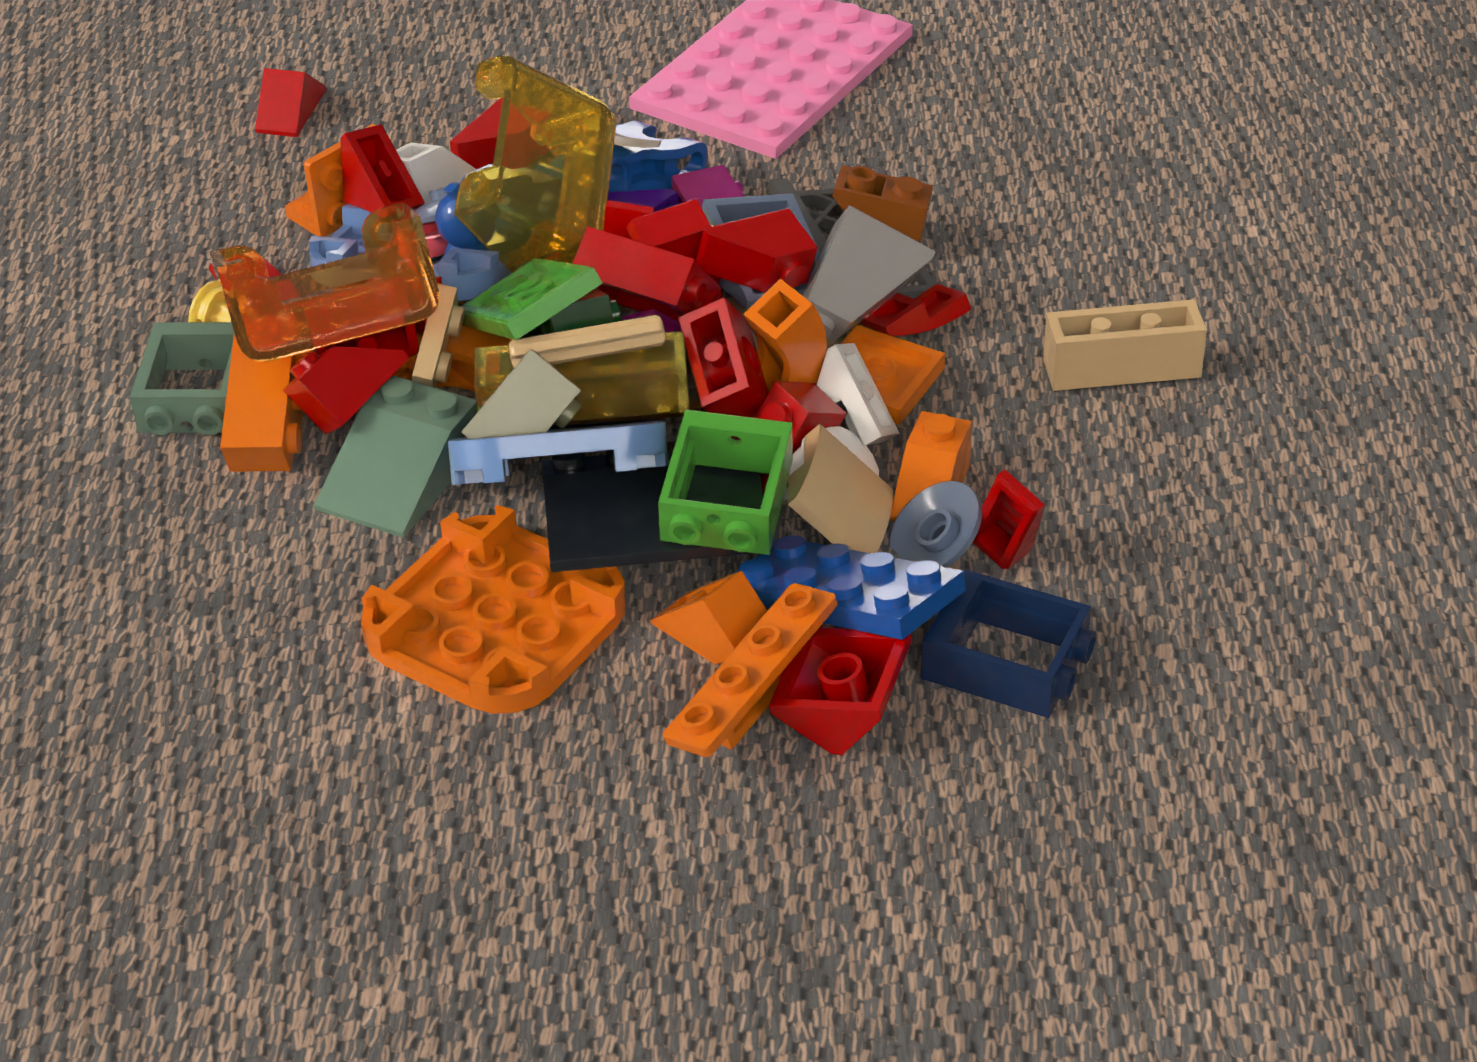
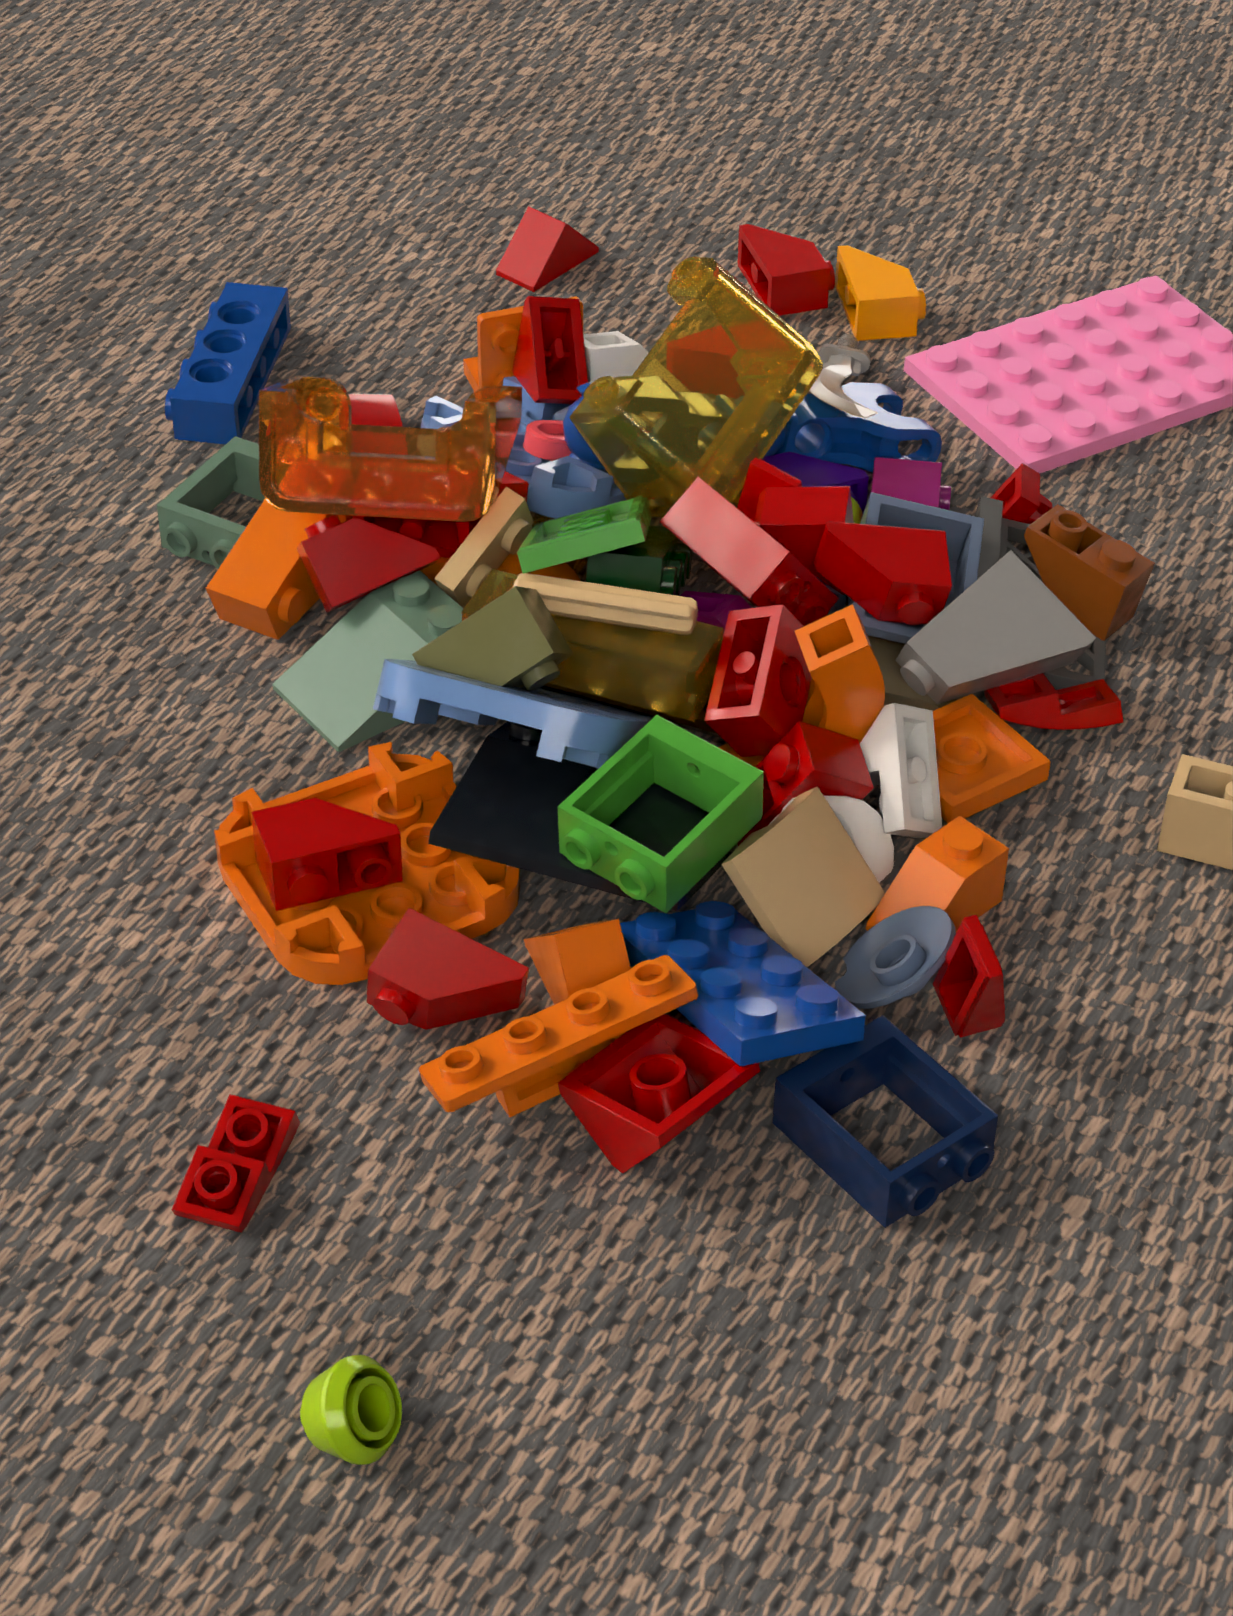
camera: 25 degrees right, 0 degrees up
(92, 270) = (229, 363): none -> blue brick
(465, 610) = (323, 851): none -> red slope
(467, 47) = (784, 270): none -> red slope
(557, 863) = (238, 1164): none -> red slope
(576, 55) = (877, 296): none -> light orange slope
(619, 666) = (441, 976): none -> red slope
(779, 994) = (352, 1410): none -> lime cone
(792, 166) = (1022, 496): none -> red tile

